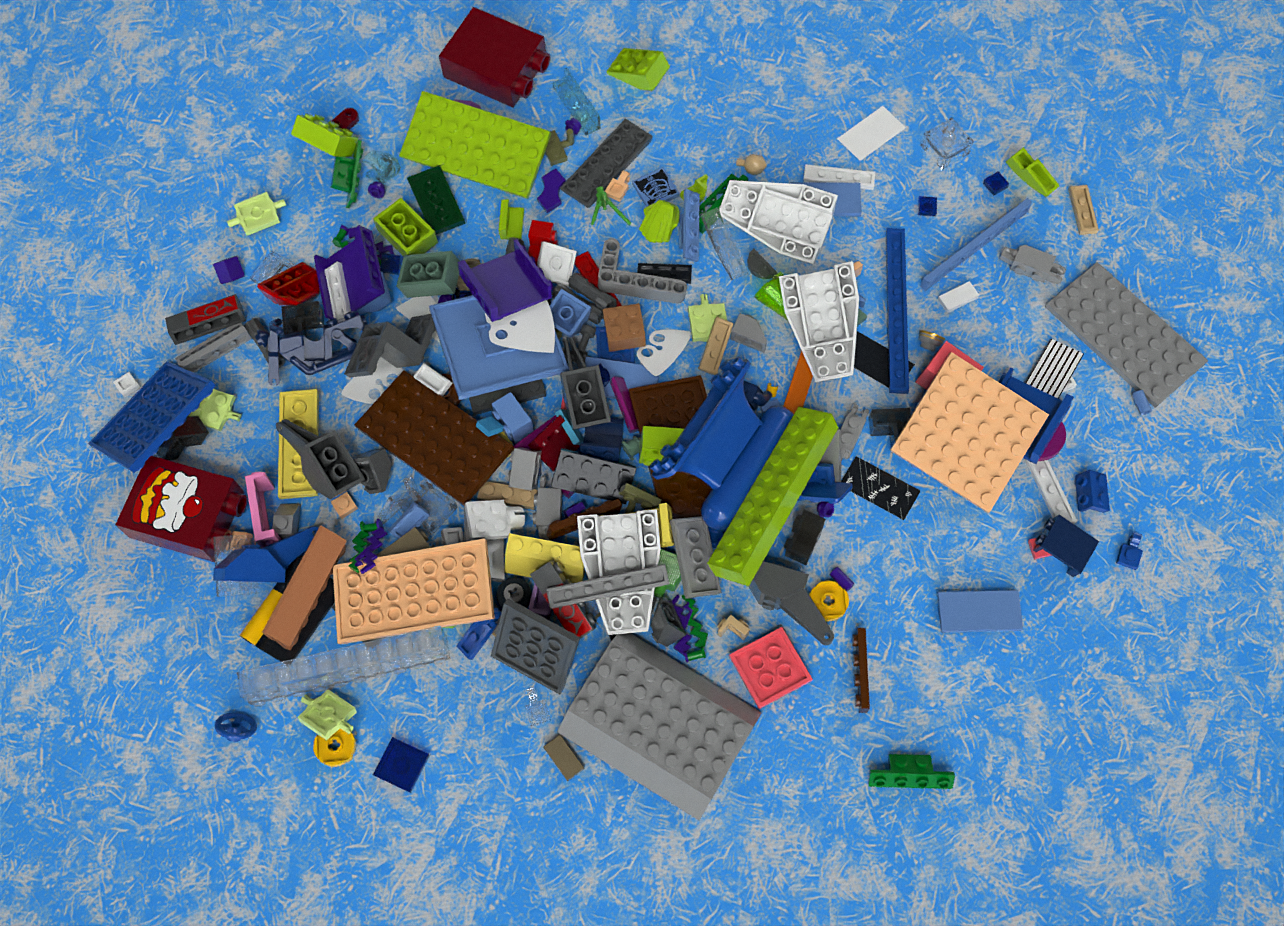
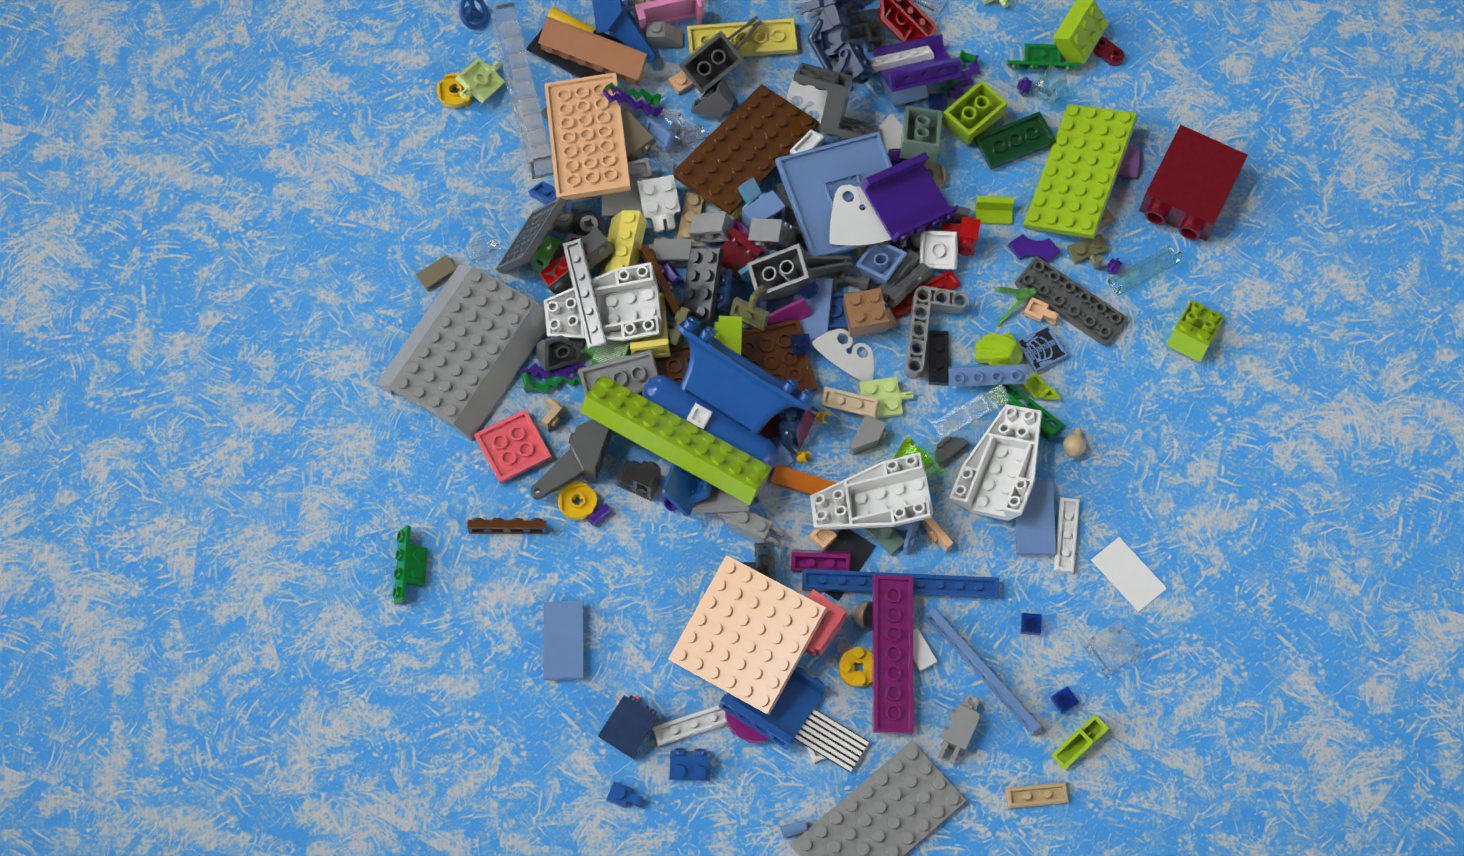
camera: 85 degrees right, 0 degrees up
(401, 765) = (436, 143): clear blue tile -> none
(542, 402) = (772, 234): none -> wedge
(627, 426) = (749, 311): none -> olive plate
(657, 386) = (800, 344): none -> clear blue plate
(751, 468) = (699, 416): none -> white tile
(859, 374) = (822, 538): none -> light nougat plate
(876, 377) = (819, 560): none -> magenta slope
(880, 488) = (697, 558): black sticker -> none
(970, 313) = (892, 655): none -> magenta plate
(987, 339) = (846, 667): none -> yellow plate

